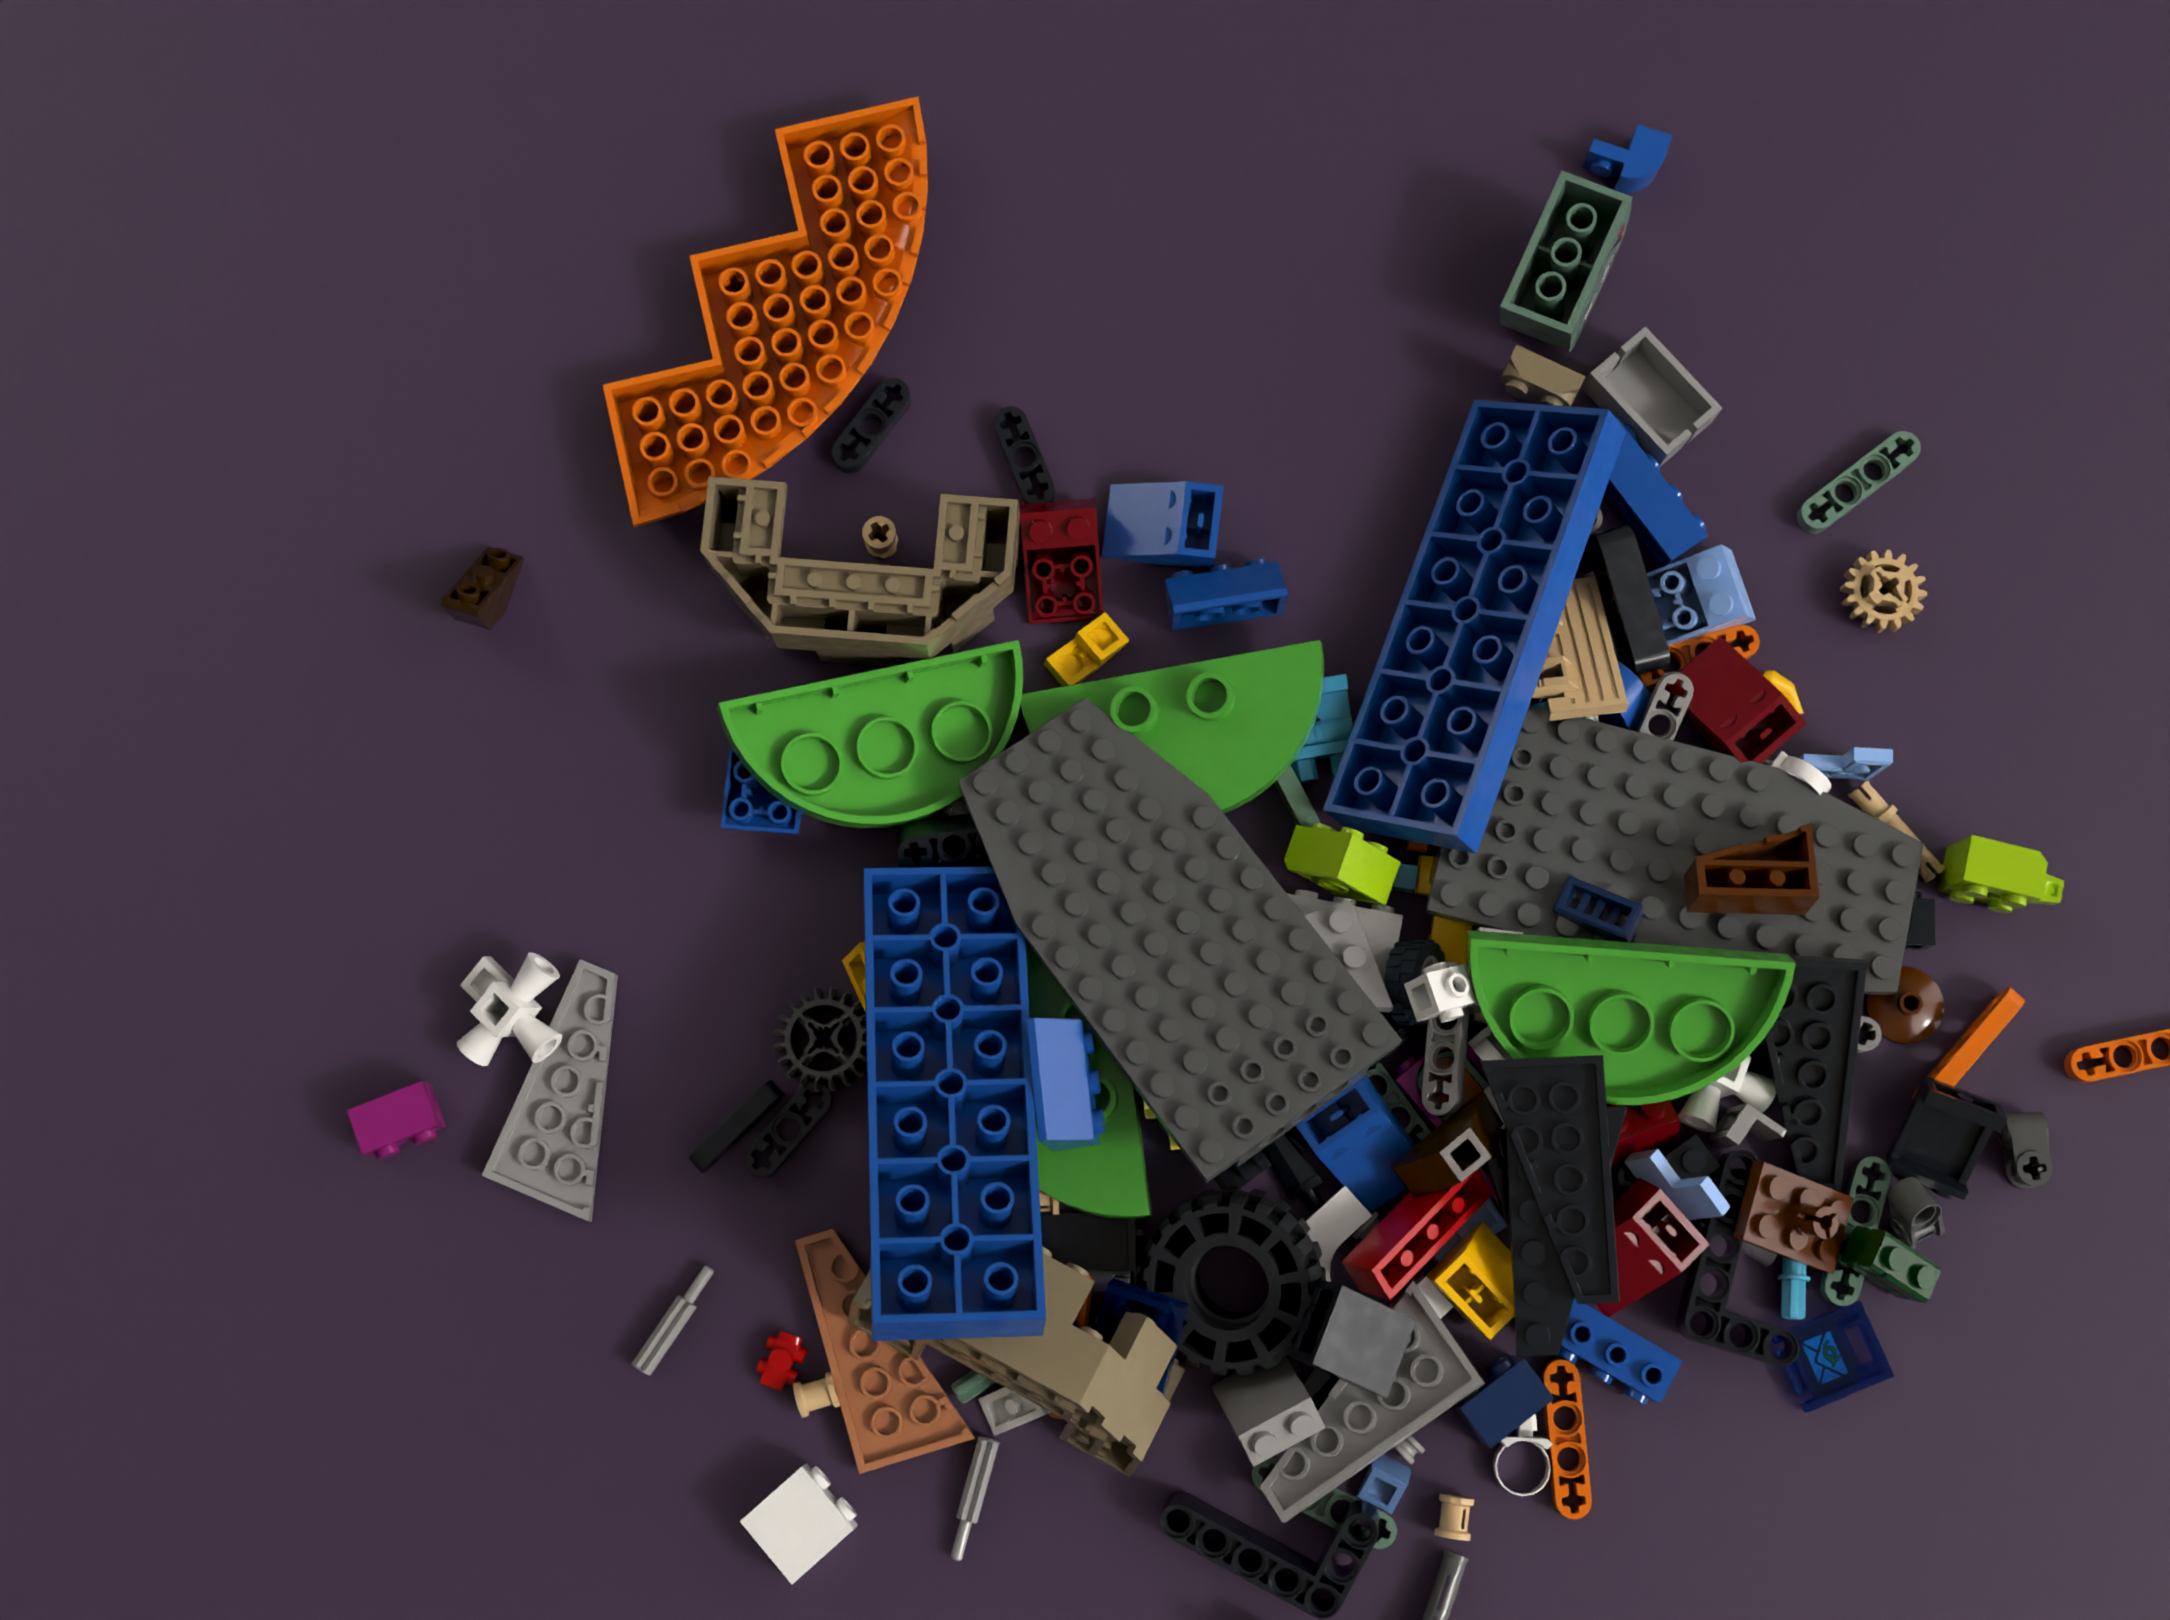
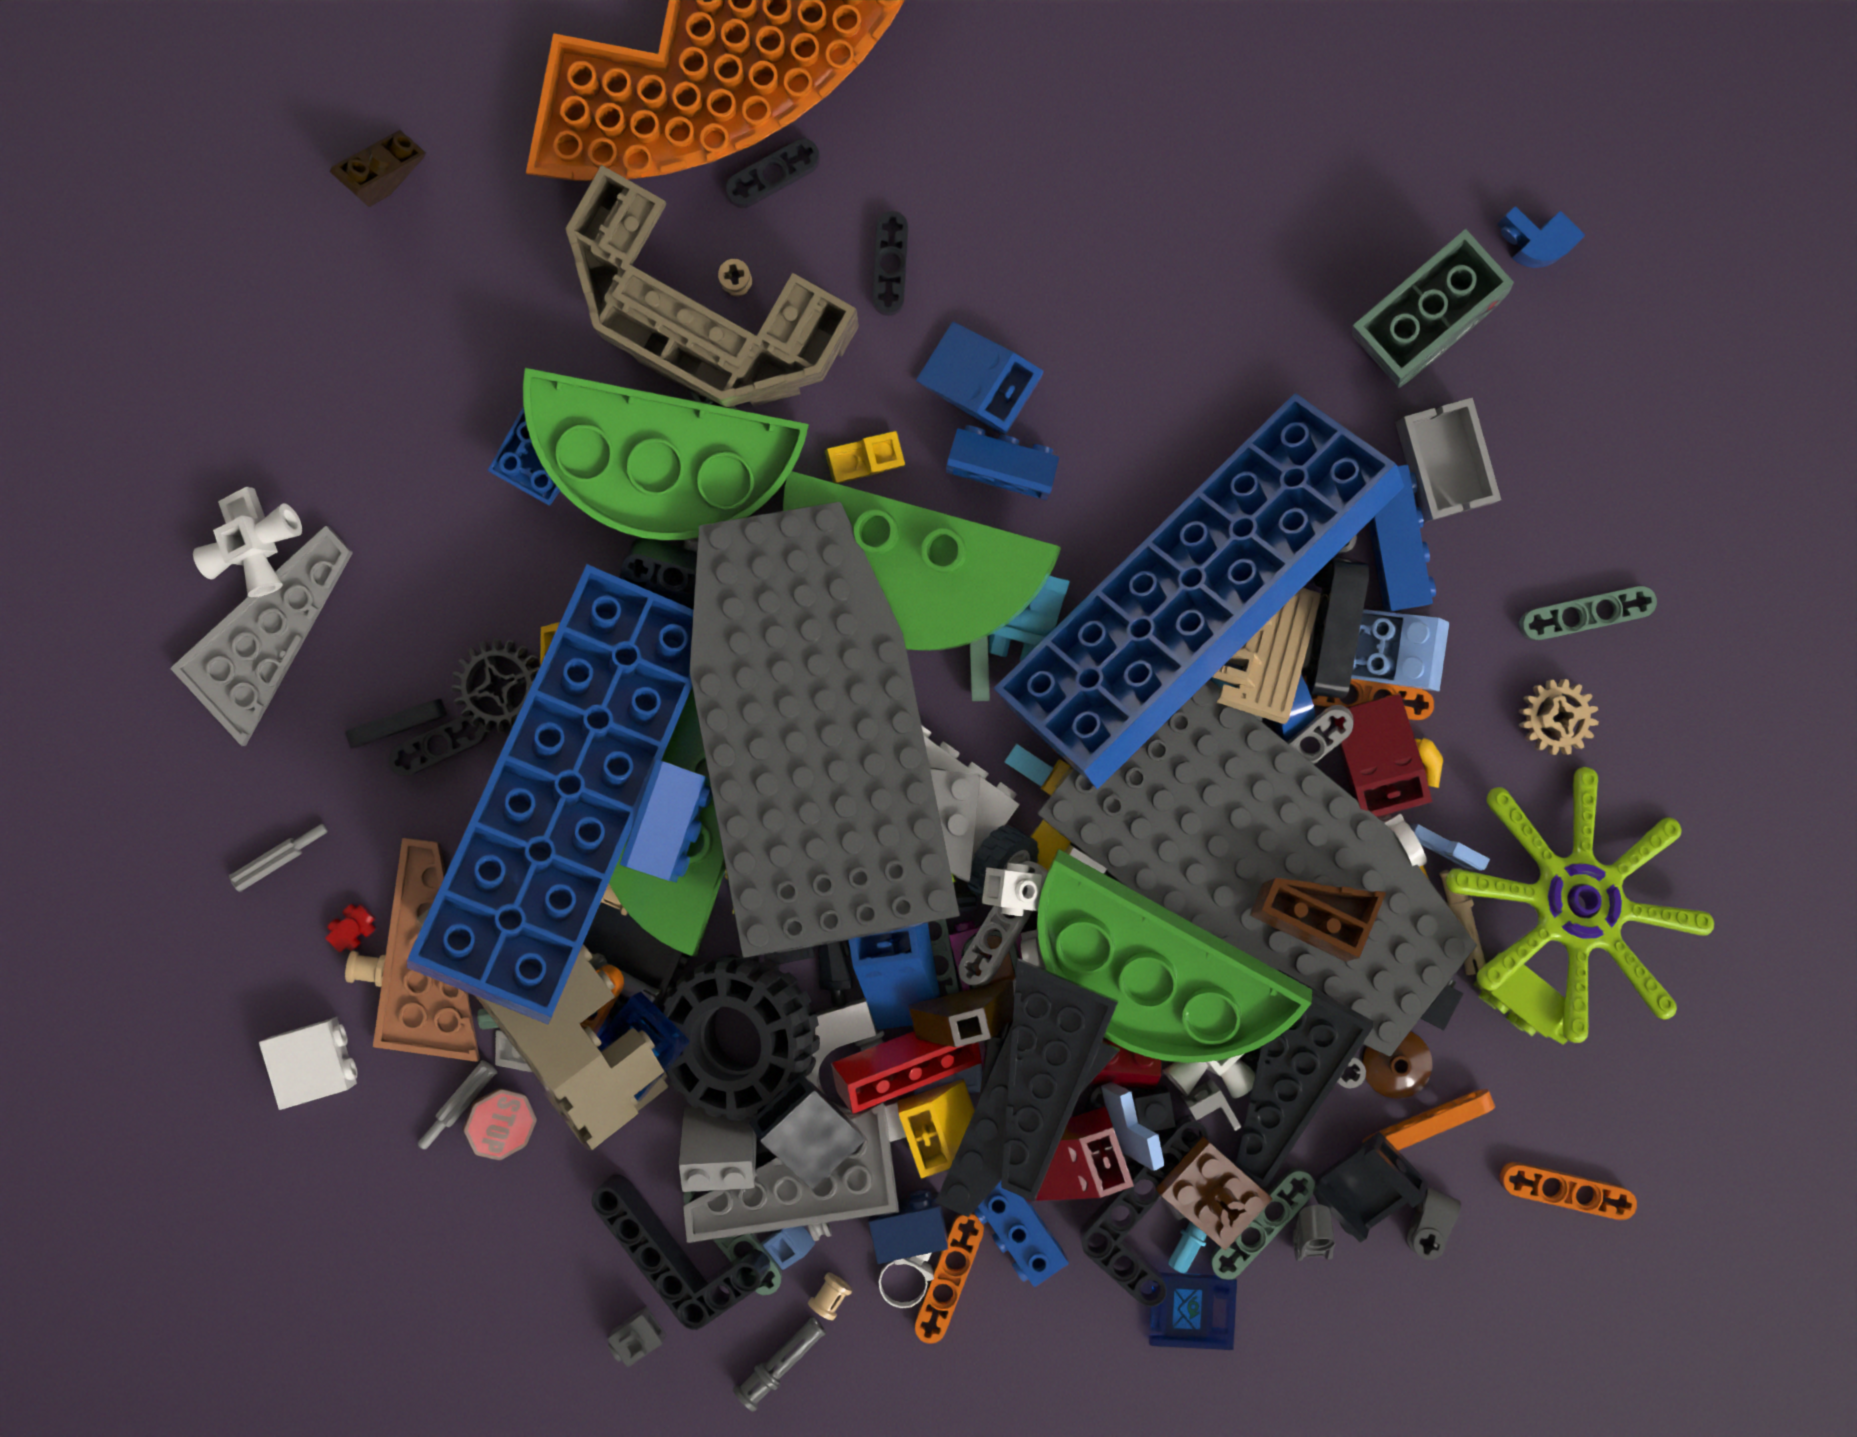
camera: 25 degrees right, 10 degrees up
(396, 1120) = (119, 590): magenta brick -> none
(1027, 1494) = (499, 1124): none -> piece
(1061, 561) = (879, 368): dark red slope -> none
(1342, 862) = (988, 739): lime hinge -> none
(1540, 380) = (1358, 404): dark tan slope -> none
(1604, 898) = (1176, 900): dark blue slope -> none
(1891, 1264) = (1274, 1265): dark green brick -> none
(2002, 756) = (1564, 918): none -> lime animal

